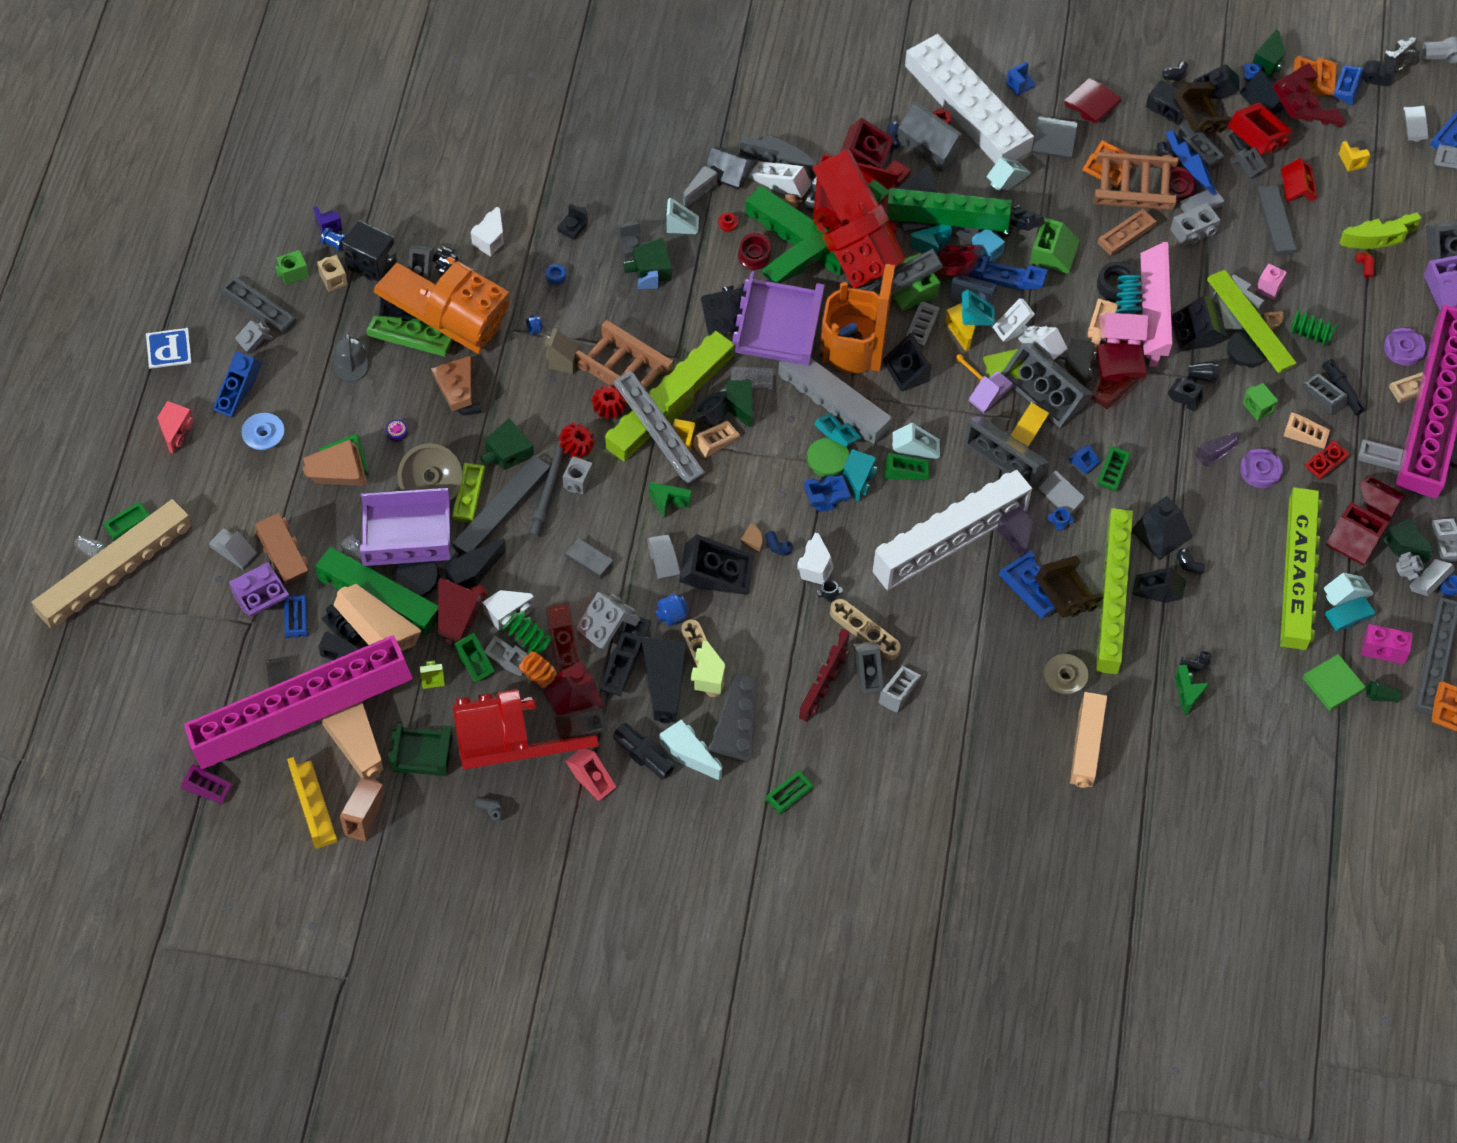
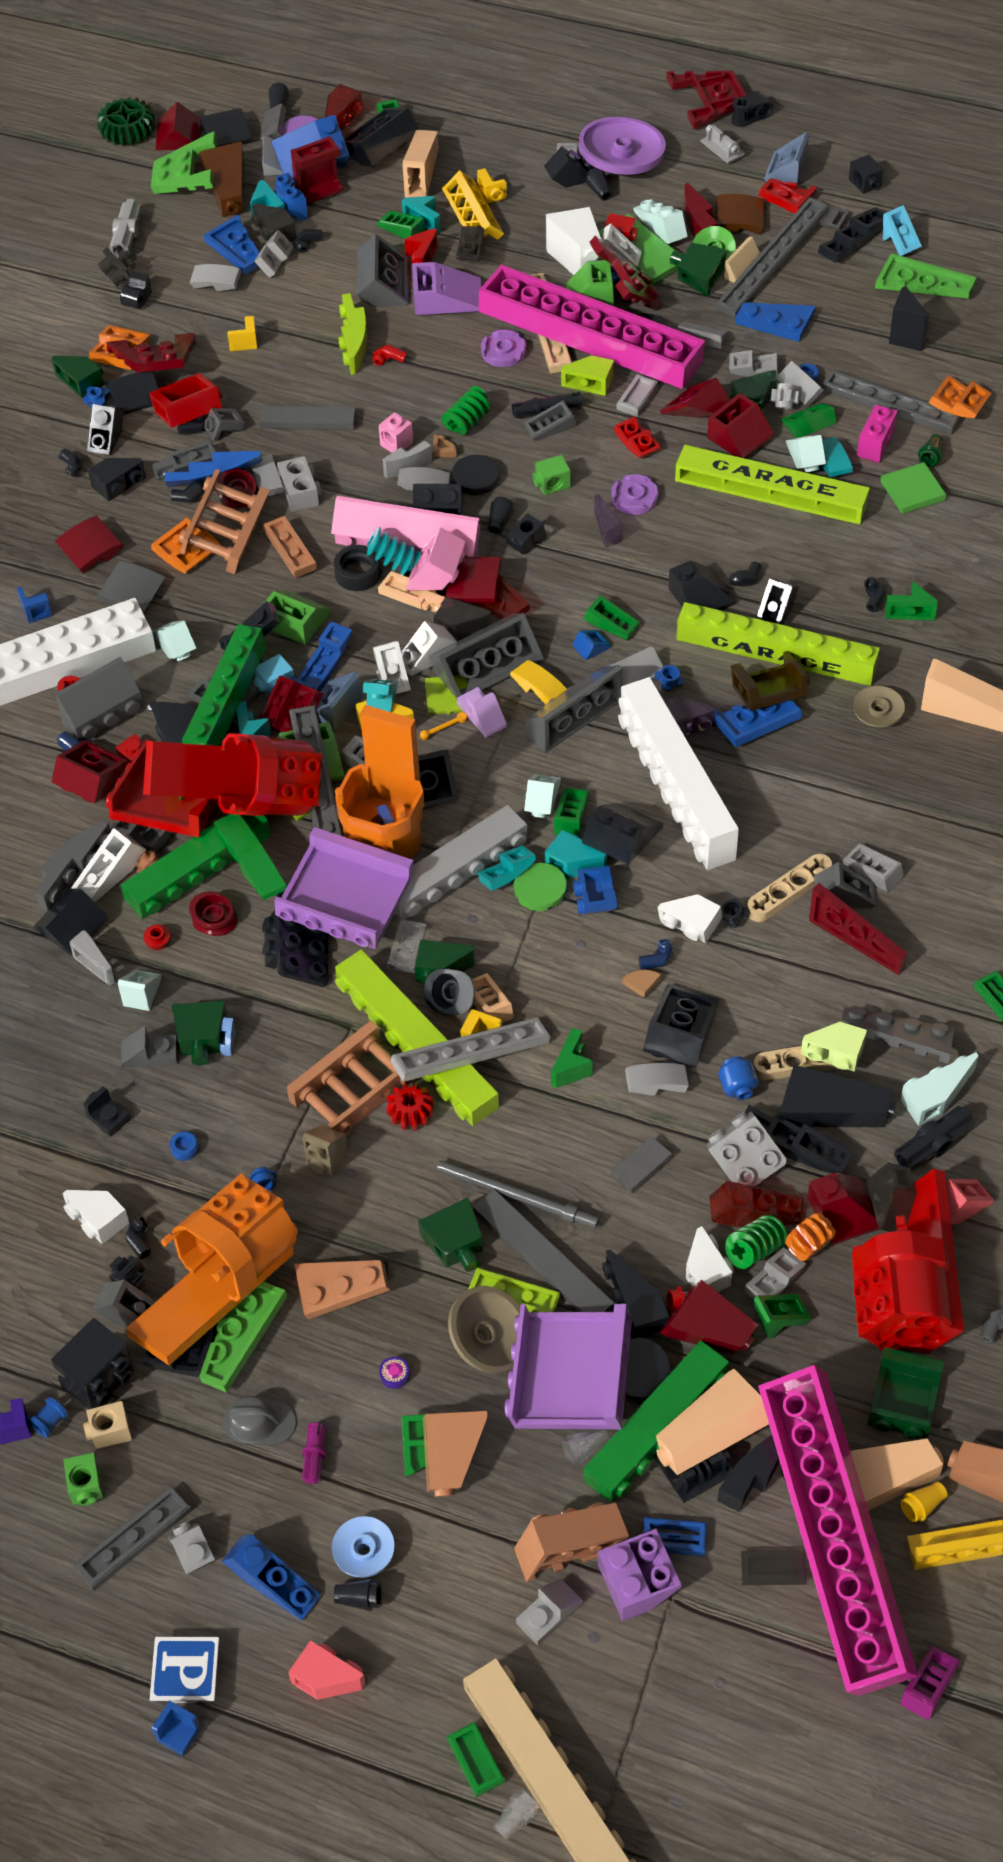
camera: 75 degrees left, 5 degrees down
(131, 351) = (176, 1728): none -> blue panel
(230, 436) = (359, 1594): none -> black cone
(322, 393) = (313, 1453): none -> magenta axle
(338, 768) = (921, 1502): none -> yellow cone
(432, 675) = (795, 1362): lime tile -> none
(479, 260) = (136, 1235): none -> black arm
(576, 440) = (465, 1149): red gear -> none
(580, 468) = (516, 1147): light grey brick -> none
(680, 403) = (435, 1017): lime piece -> none
(887, 498) = (619, 831): none -> black slope
(1199, 108) = (142, 446): dark brown panel -> none
(1251, 321) = (446, 458): lime tile -> none
(1297, 434) = (594, 458): light nougat slope -> none
(1299, 180) = (261, 388): red panel -> none
(1349, 84) = (142, 319): blue slope -> none
(1390, 413) = (589, 375): none -> lime slope
(1393, 593) = (810, 420): none -> green slope

